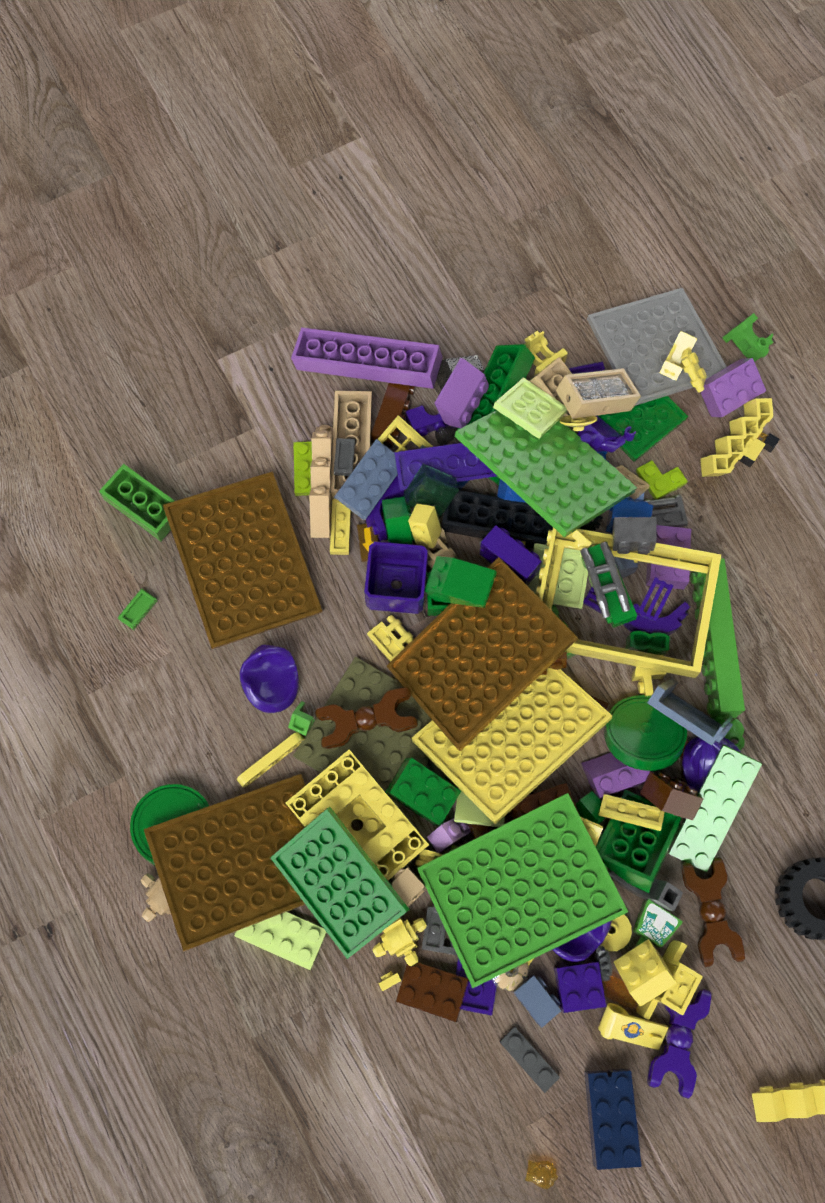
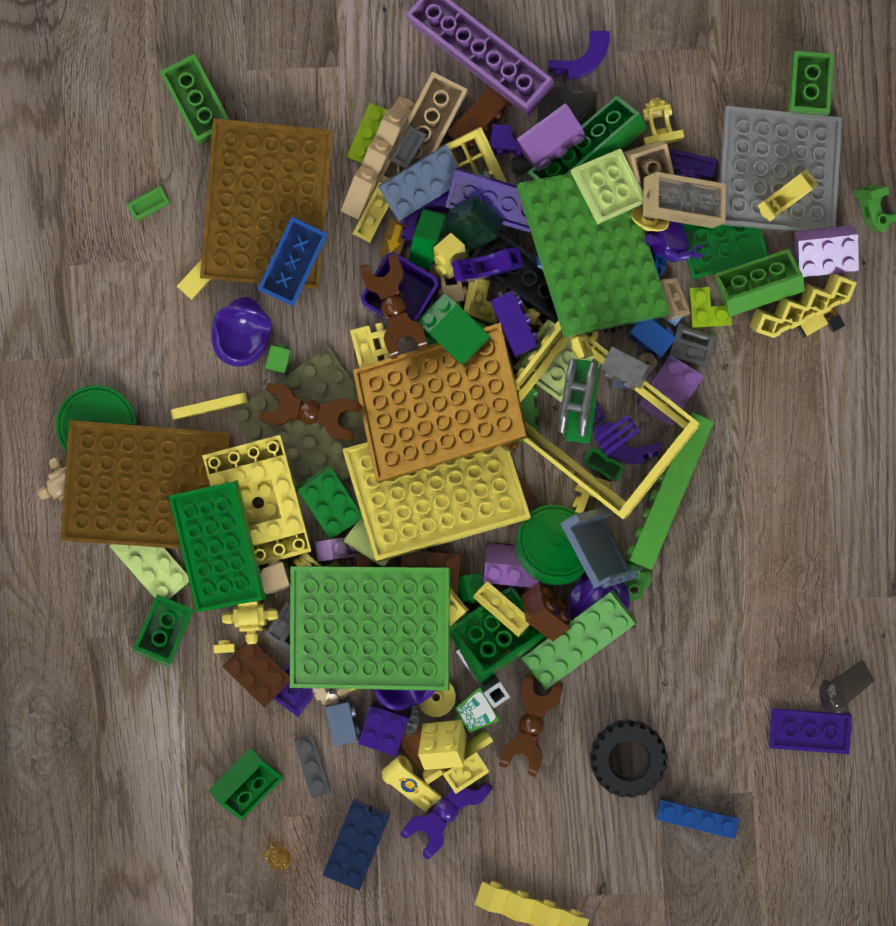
camera: 25 degrees right, 15 degrees up
(207, 657) = (192, 283): none -> light yellow tile
(288, 594) = (292, 261): none -> blue brick
(301, 721) = (251, 385): bright green panel -> none
(315, 687) = (278, 358): none -> bright green brick
(322, 995) = (163, 631): none -> green slope
(398, 585) = (393, 306): none -> reddish brown piece
(457, 338) = (588, 62): none -> dark purple arch
(463, 518) = (488, 265): none -> dark purple arch
(464, 552) = (476, 303): none -> light yellow plate
(474, 1112) = (245, 784): none -> green slope
(643, 271) = (810, 83): none -> bright green brick
(691, 366) = (791, 219): light yellow plate -> none
(693, 435) = (759, 282): none -> bright green brick

